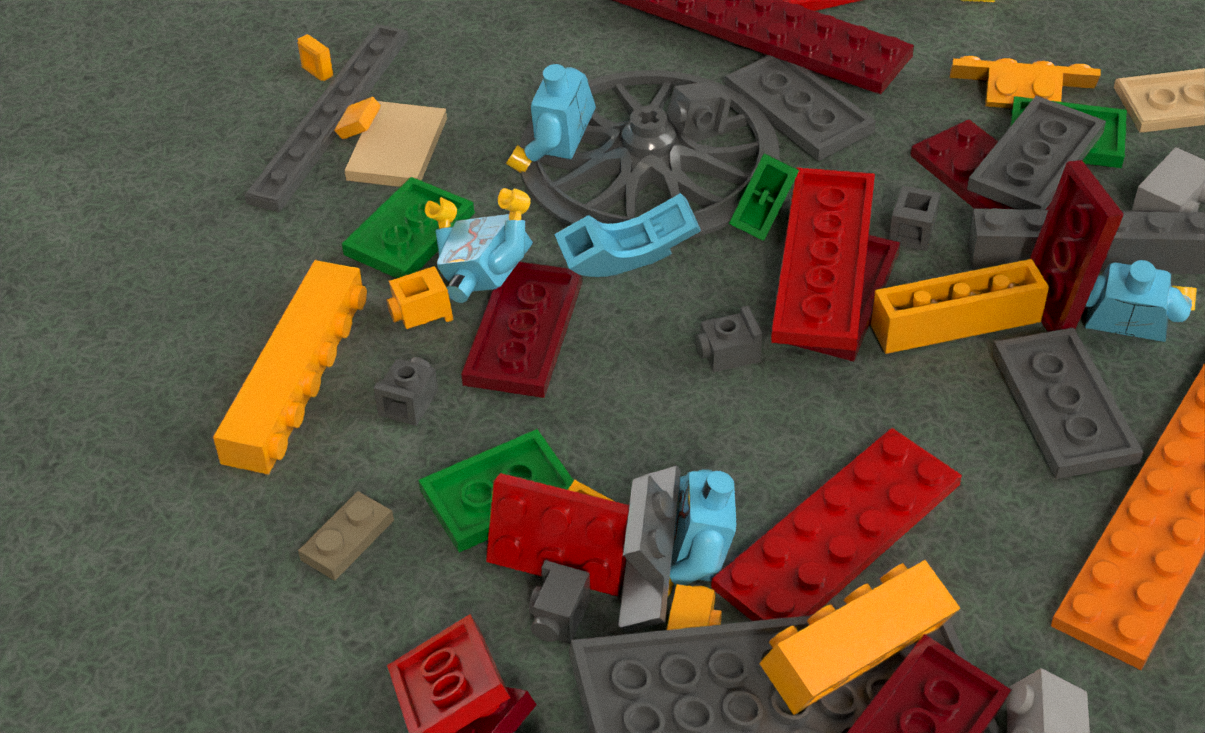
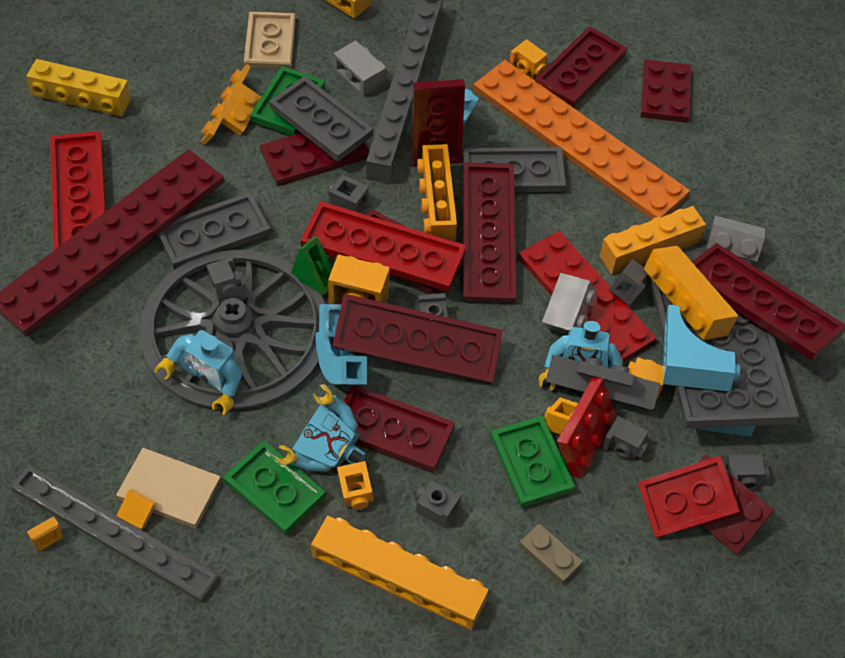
camera: 85 degrees left, 10 degrees up
(666, 318) = (417, 339): none -> dark red plate
(705, 623) = (692, 361): none -> medium azure arch
(739, 241) = (358, 279): none -> light orange brick
(792, 487) = (569, 304): none -> light grey brick
(871, 561) = (629, 282): none -> dark grey brick
(912, 377) = (489, 233): none -> dark red plate
(994, 603) = (678, 229): none -> light orange brick

